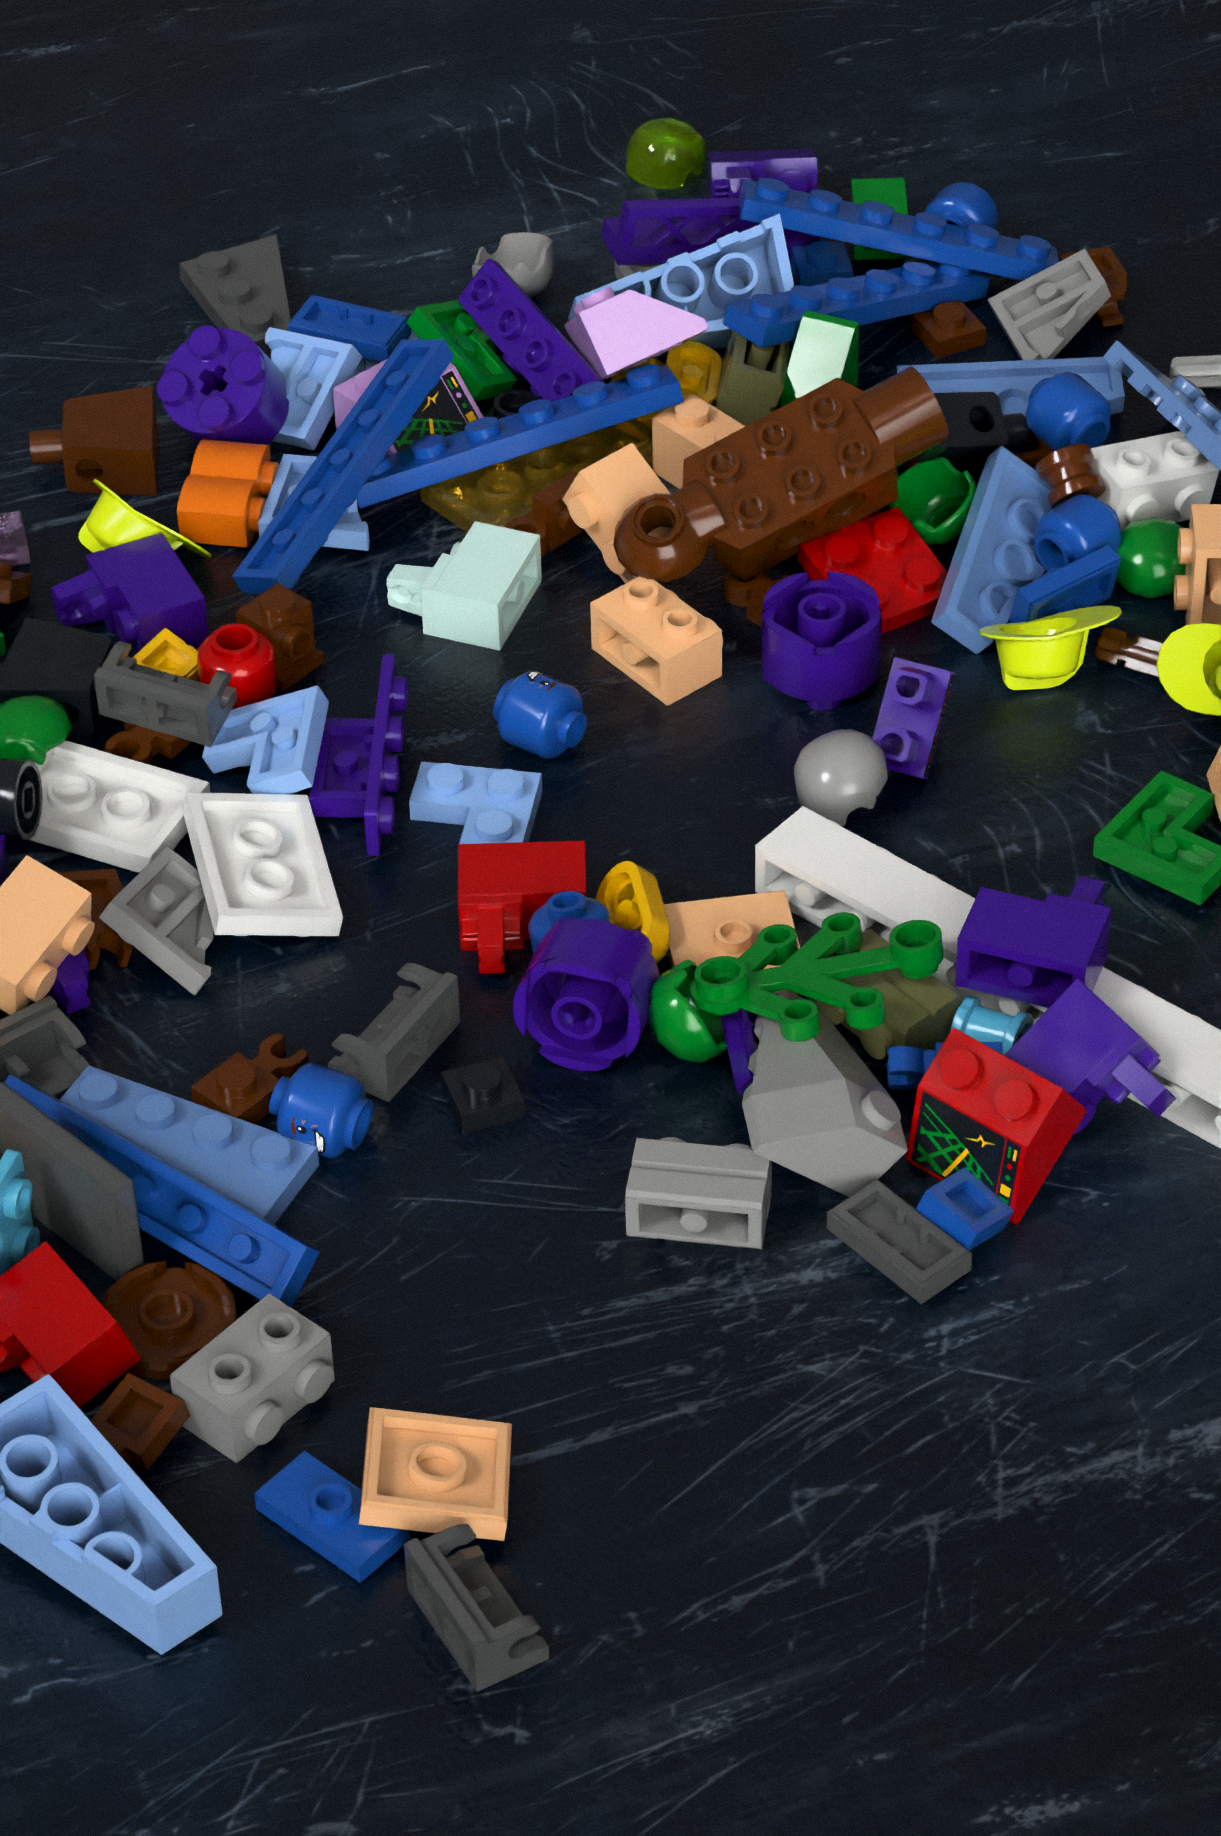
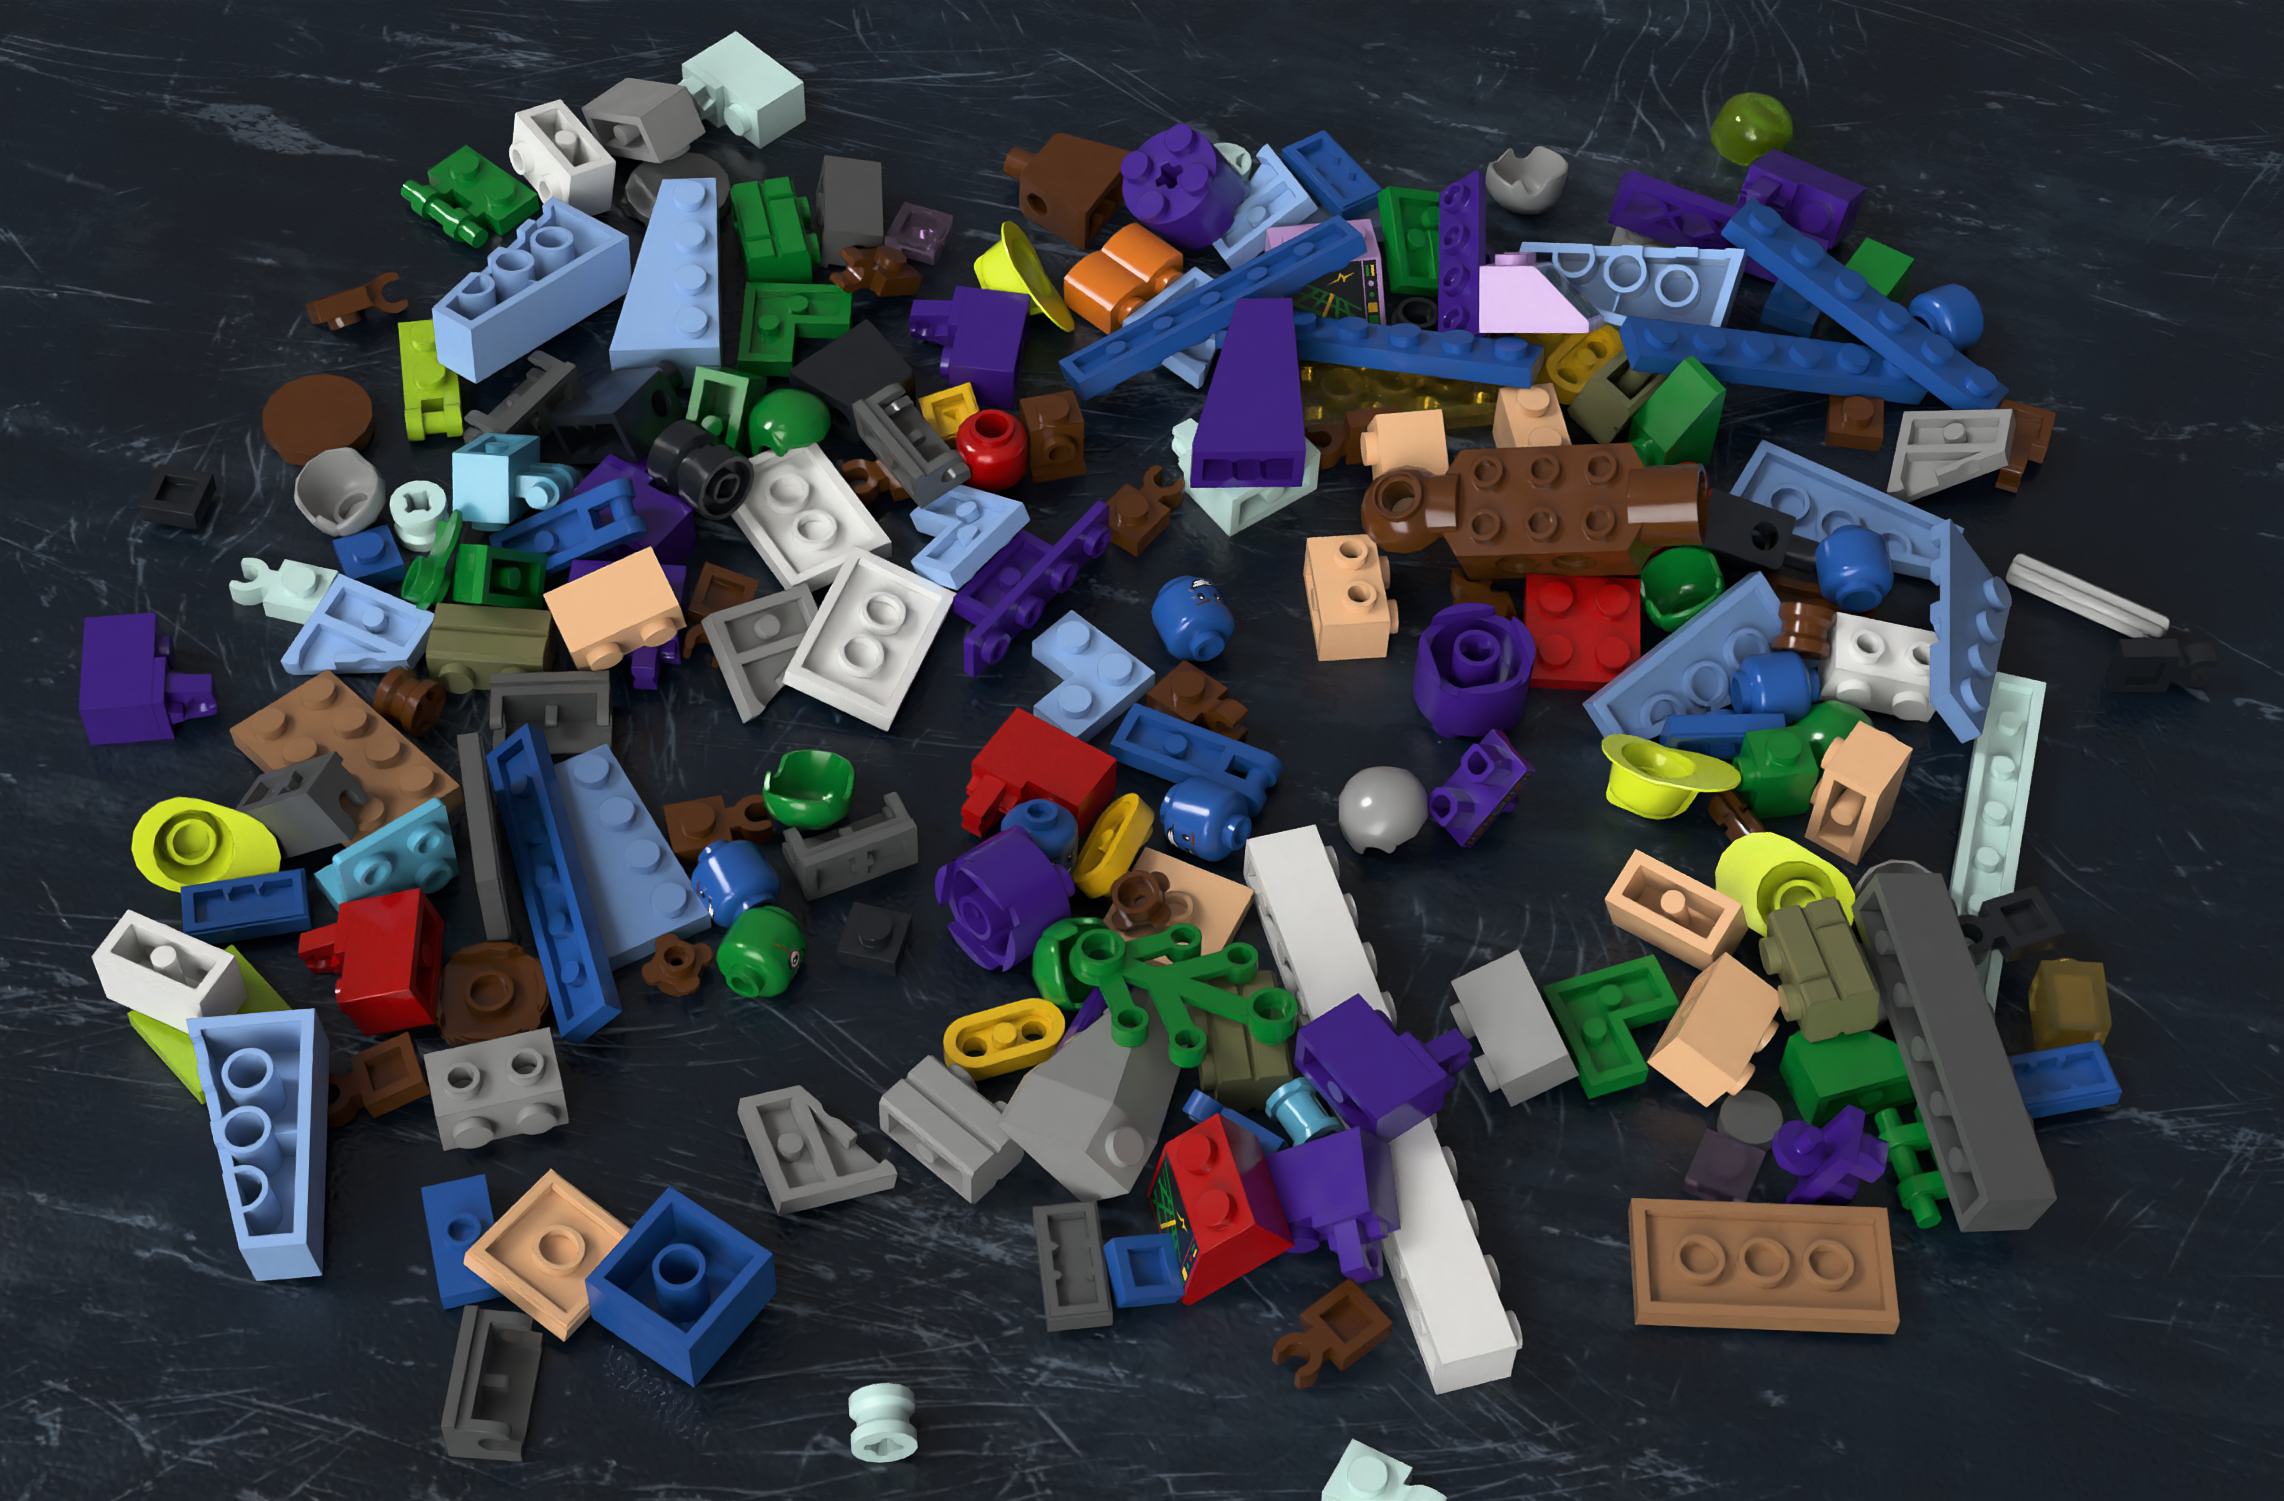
camera: 30 degrees right, 10 degrees up
(241, 288) = (1300, 92): dark grey wing -> none
(323, 1002) = (810, 789): none -> green hair
(324, 1203) = (679, 979): none -> reddish brown plate
(394, 1146) = (763, 951): none -> green head
(414, 659) = (1143, 514): none -> reddish brown plate
(459, 514) = (1254, 404): none -> dark purple slope
(582, 1428) = (681, 1286): none -> blue brick
(583, 1279) = (807, 1153): none -> light grey wing
(595, 780) = (1198, 700): none -> reddish brown plate
(643, 818) = (1183, 750): none -> blue plate
(679, 1101) = (1001, 1038): none -> yellow plate
(695, 856) = (1205, 818): none -> blue head
(699, 923) = (1133, 887): none -> reddish brown plate
(854, 1439) = (882, 1422): none -> light aqua wheel
(1135, 873) = (1513, 1029): none -> light grey brick
(1141, 588) = (1776, 771): none -> green brick
(1155, 728) = (1675, 912): none -> light nougat brick
(1163, 1171) = (1336, 1328): none -> reddish brown plate

